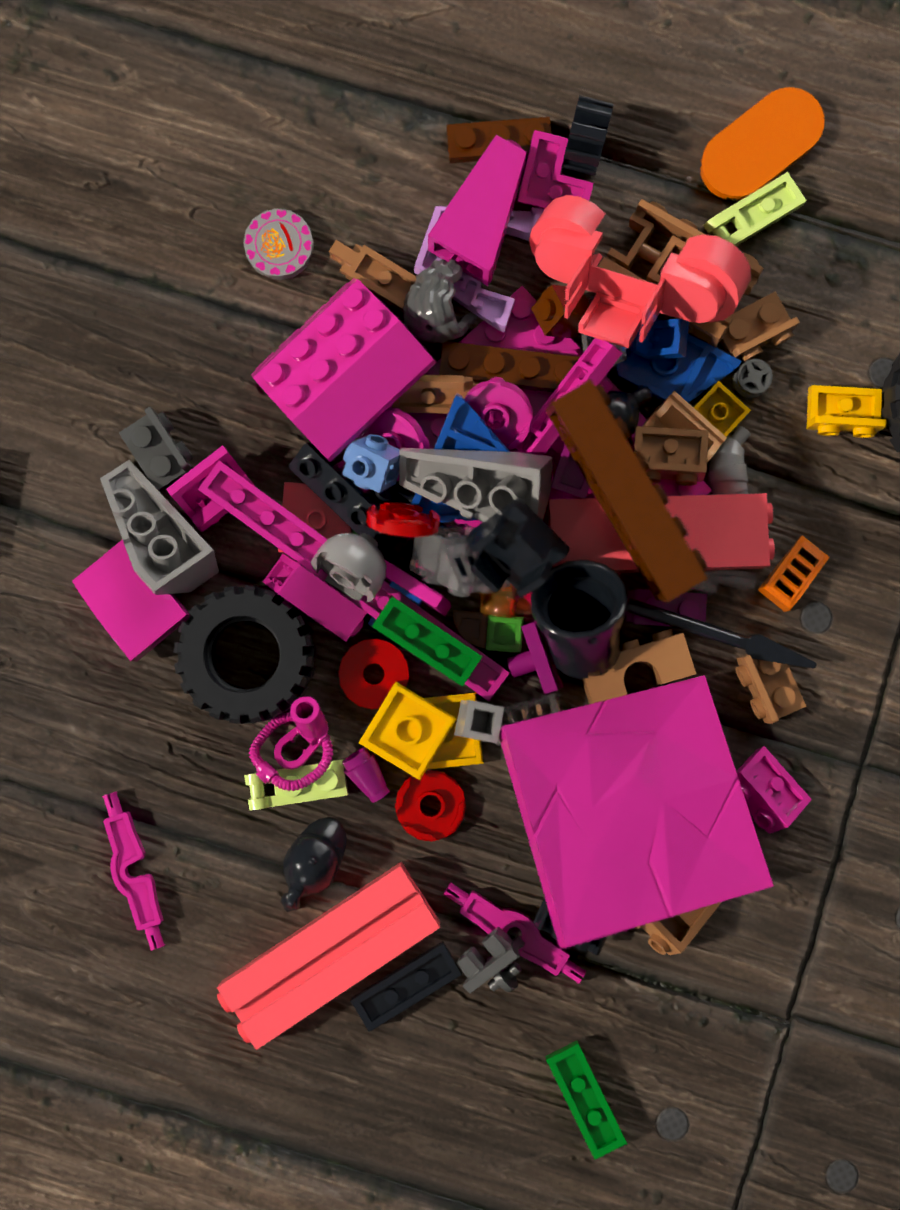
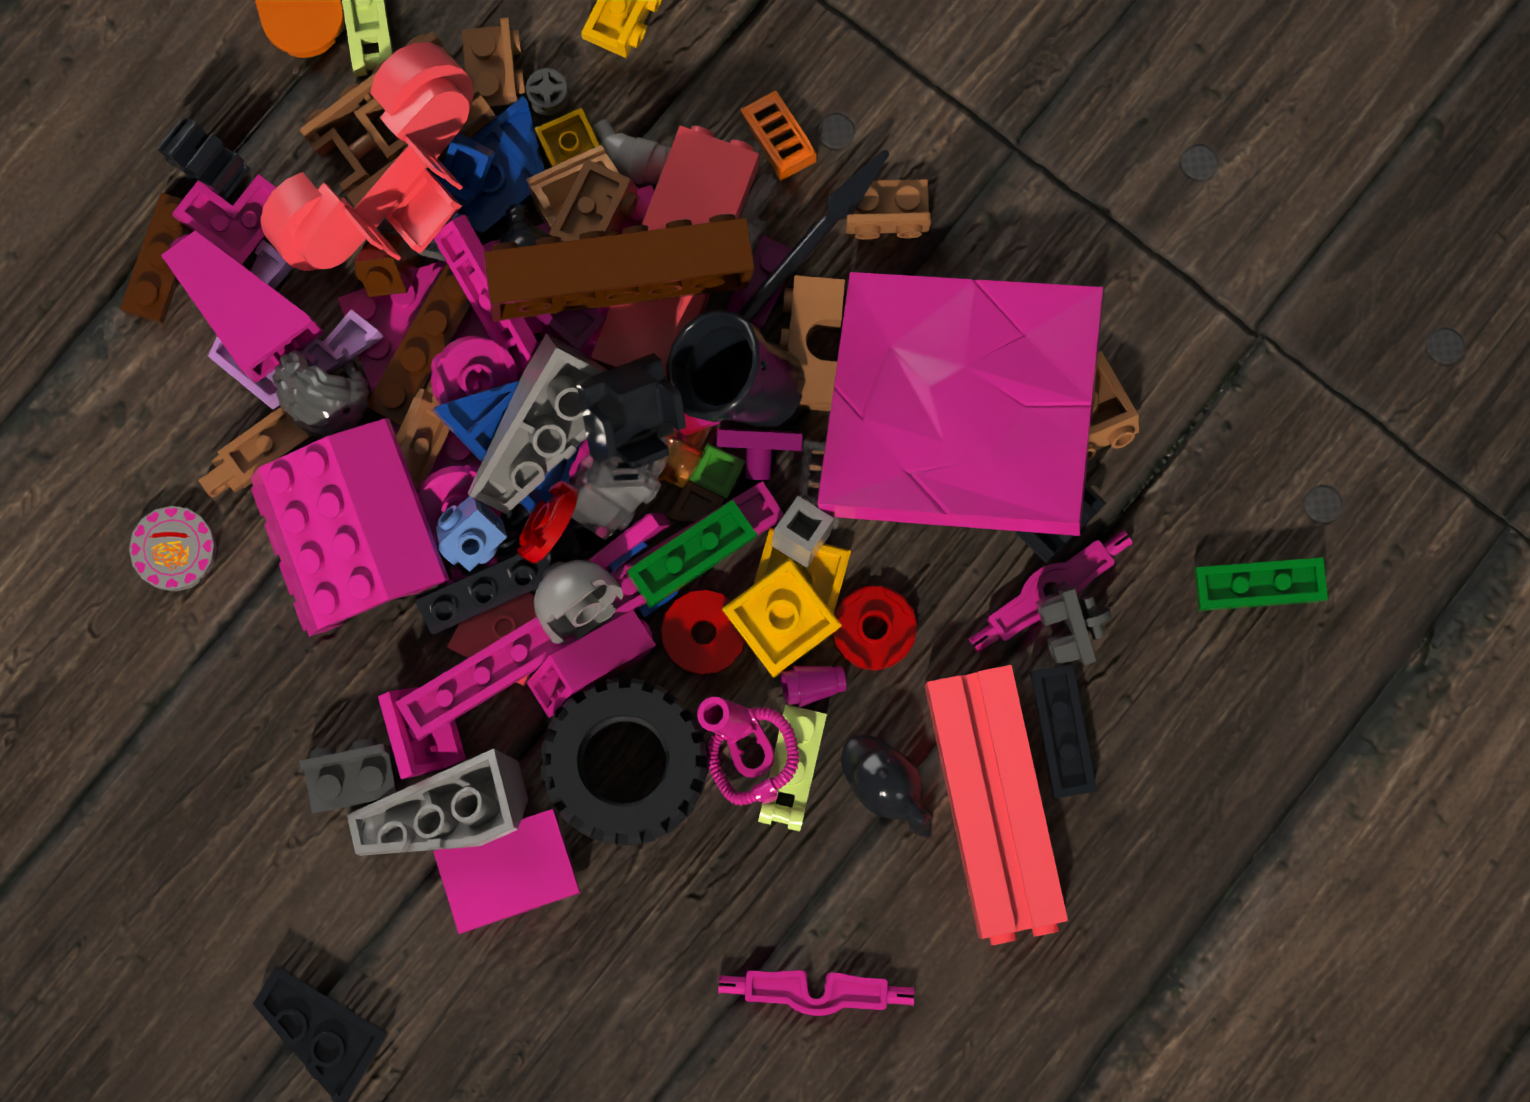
camera: 65 degrees left, 5 degrees down
(770, 791) = (1004, 253): dark pink bracket -> none

